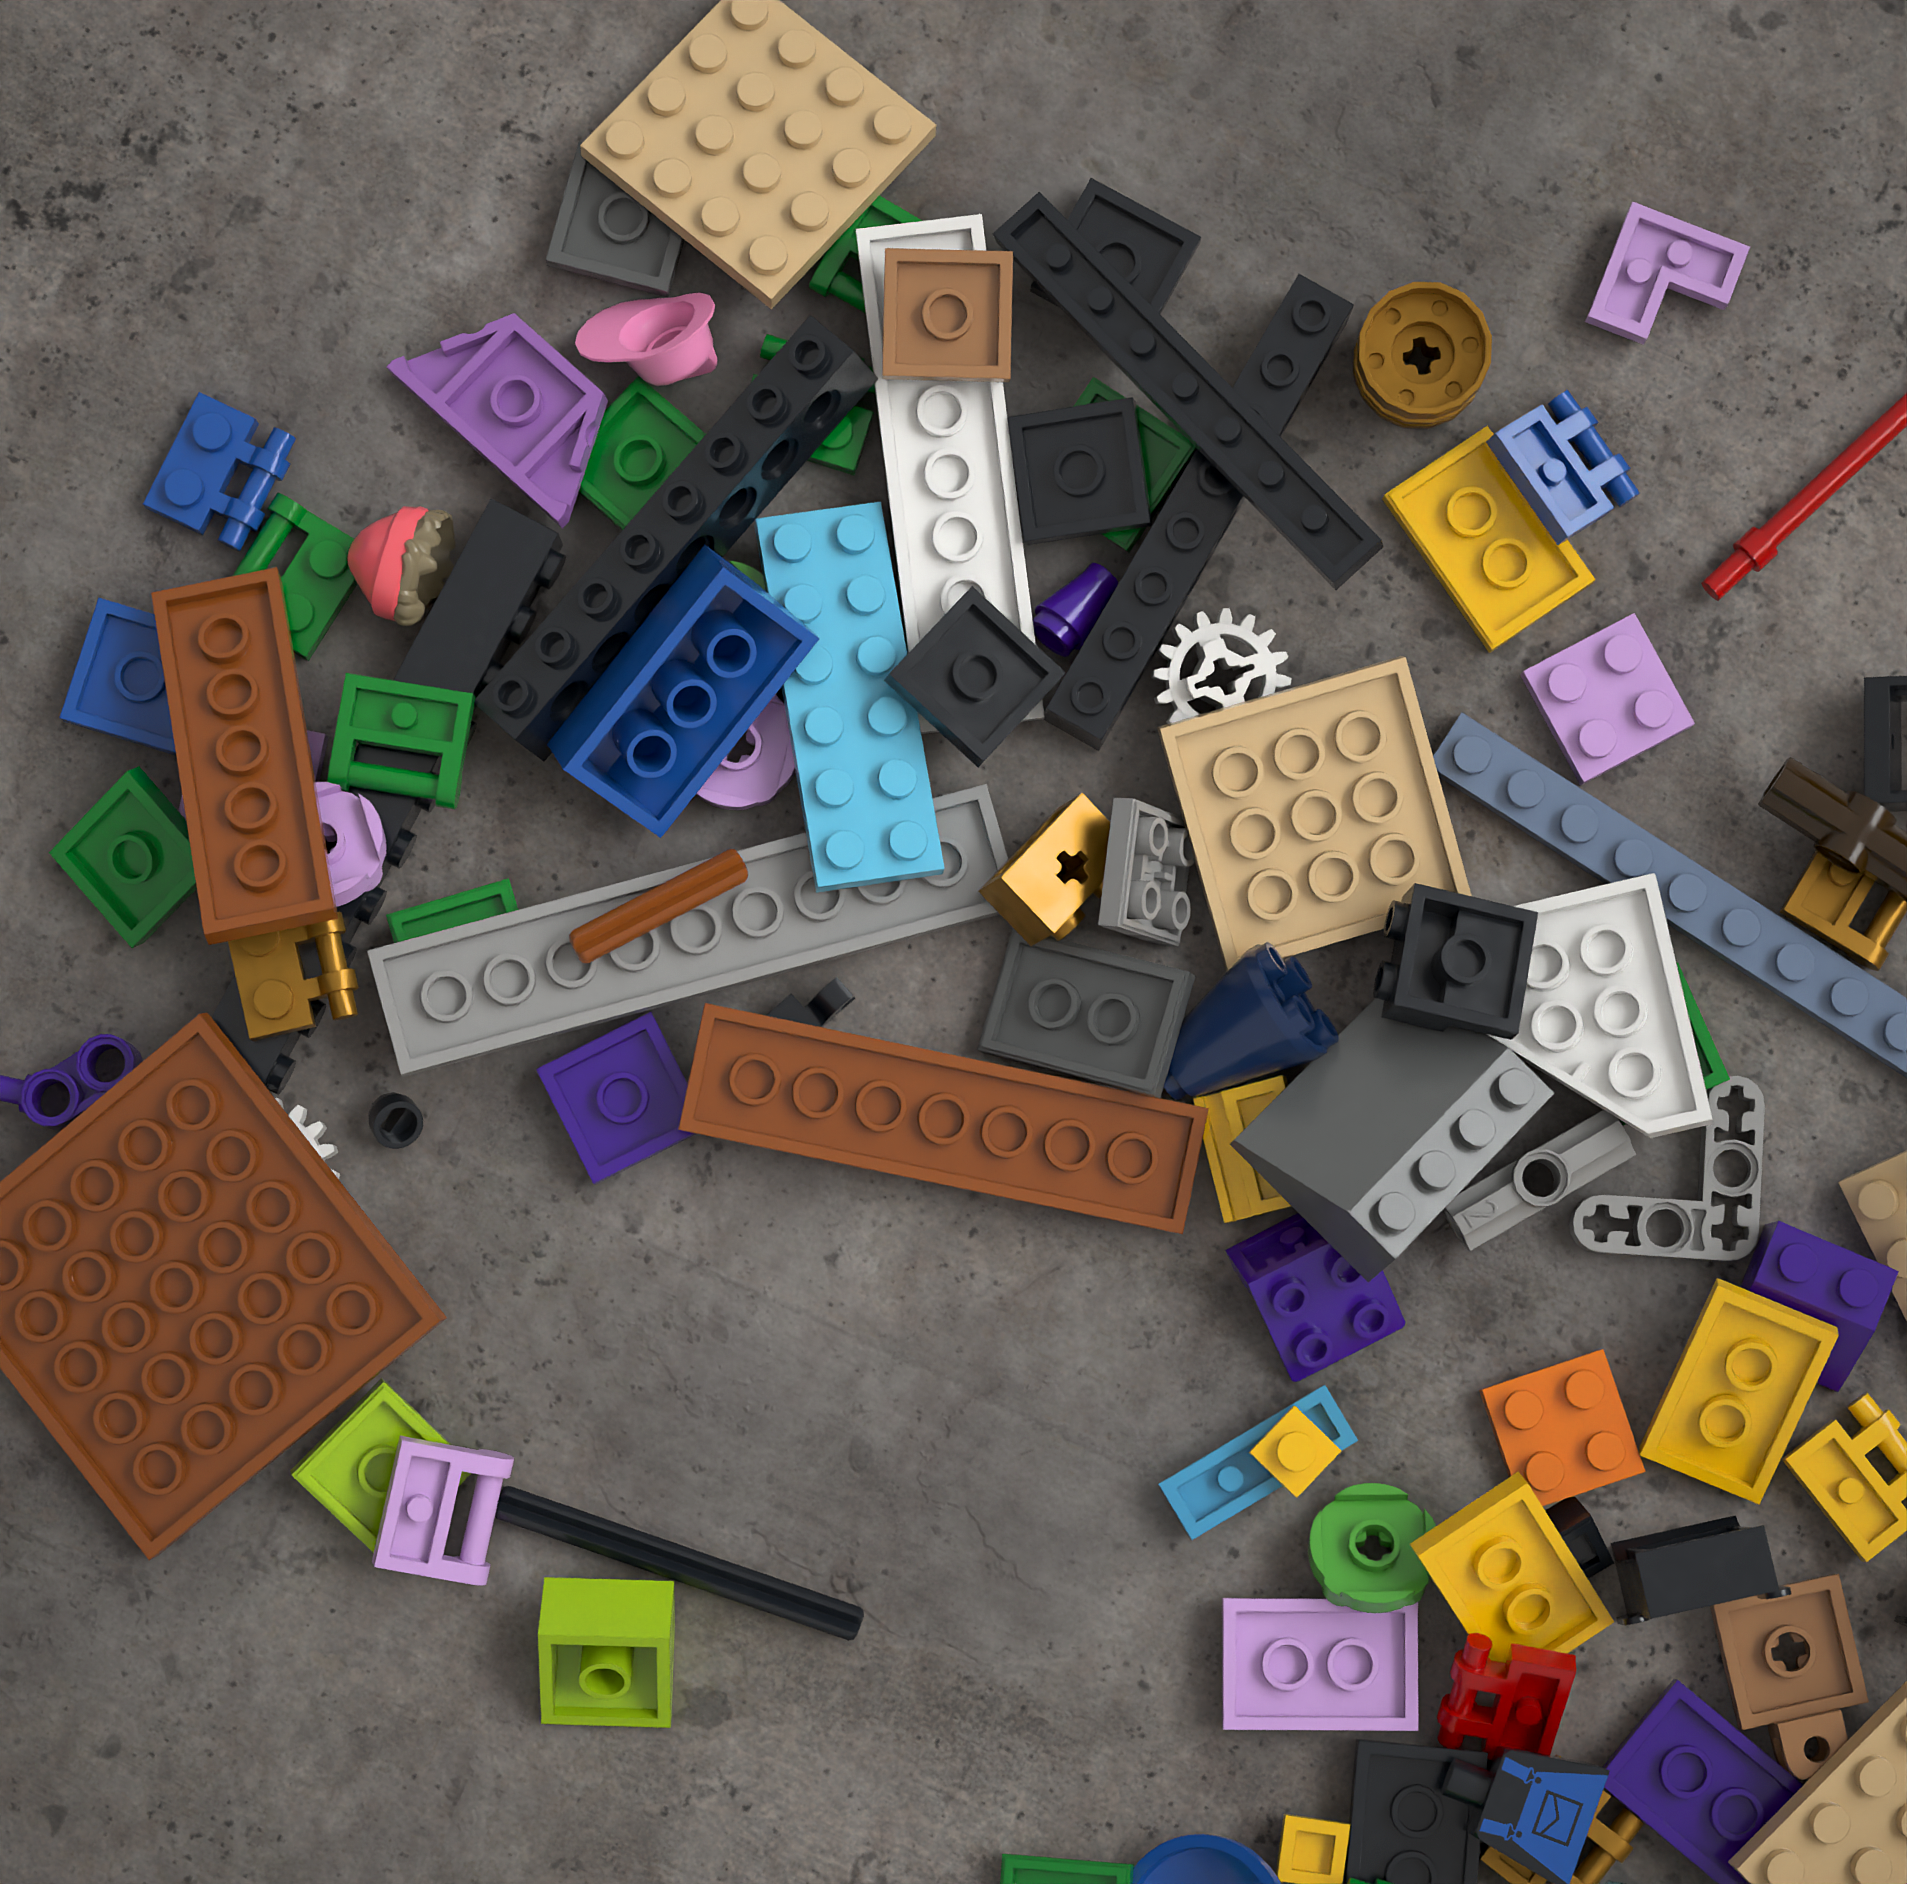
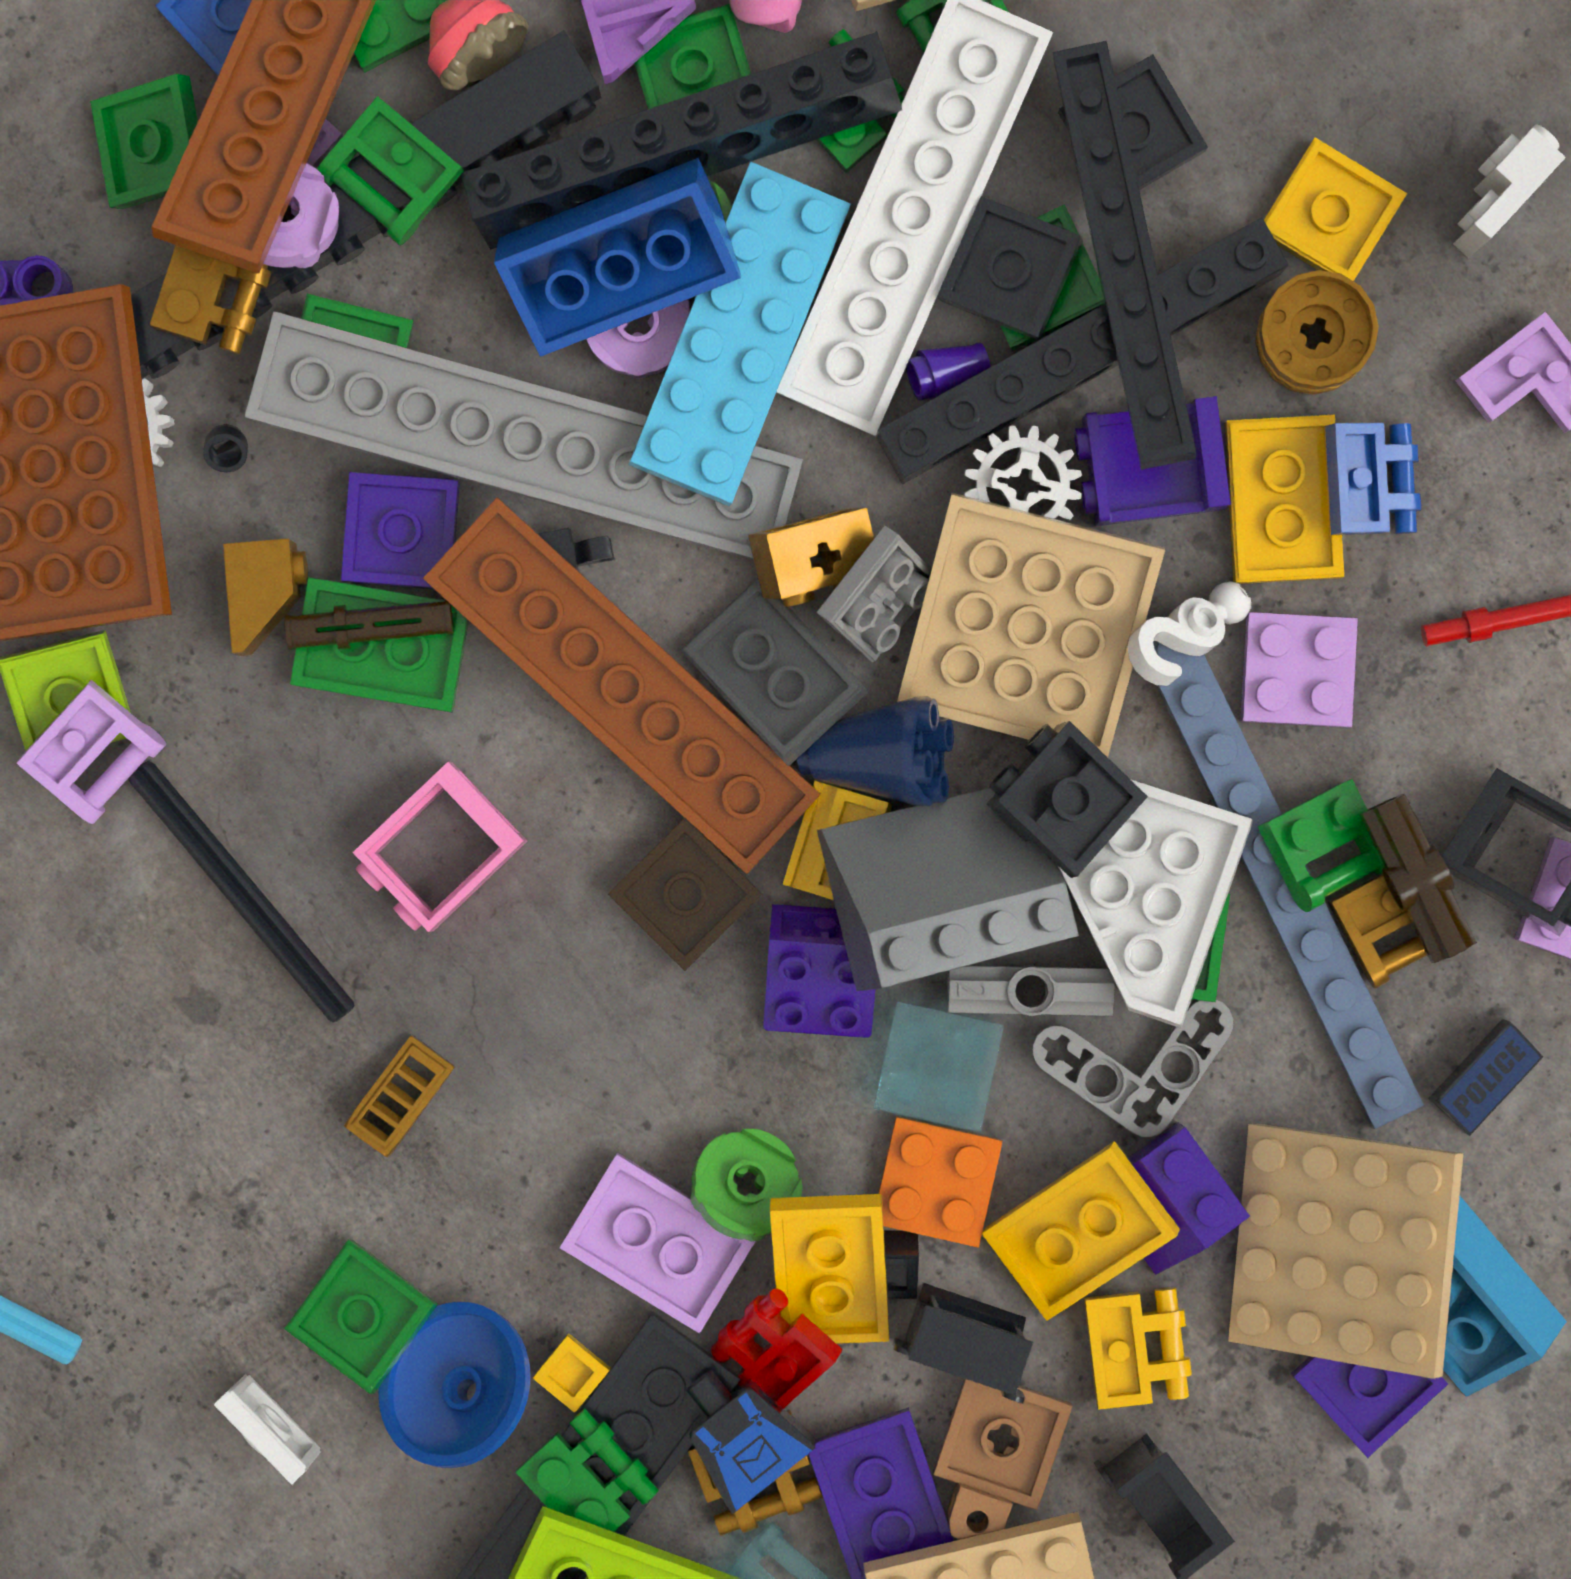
camera: 40 degrees right, 5 degrees up
(516, 1239) = (261, 588): none -> pearl gold slope
(589, 1258) = (303, 629): none -> dark brown pin
(606, 1652) = (150, 924): lime slope -> none
(658, 906) = (505, 405): dark orange axle -> none
(671, 1226) = (399, 671): none -> green plate
(871, 1330) = (379, 873): none -> bright pink window
(947, 315) = (980, 92): medium nougat plate -> none
(961, 1729) = (374, 1136): none -> pearl gold slope
(974, 676) = (839, 374): black plate -> none
(1132, 1292) = (684, 894): none -> dark brown plate
(1232, 1478) = (701, 1071): dark azure plate -> none
(1294, 1451) = (731, 1080): yellow plate -> none
(1329, 623) = (1125, 493): none -> dark purple panel
(1361, 227) = (1332, 211): none -> yellow tile
(1476, 721) = (1190, 629): none -> white piece
(1493, 1312) = (938, 1066): none -> clear light blue plate
(1520, 96) = (1509, 180): none -> white plate
(1722, 849) = (1314, 831): none -> green plate

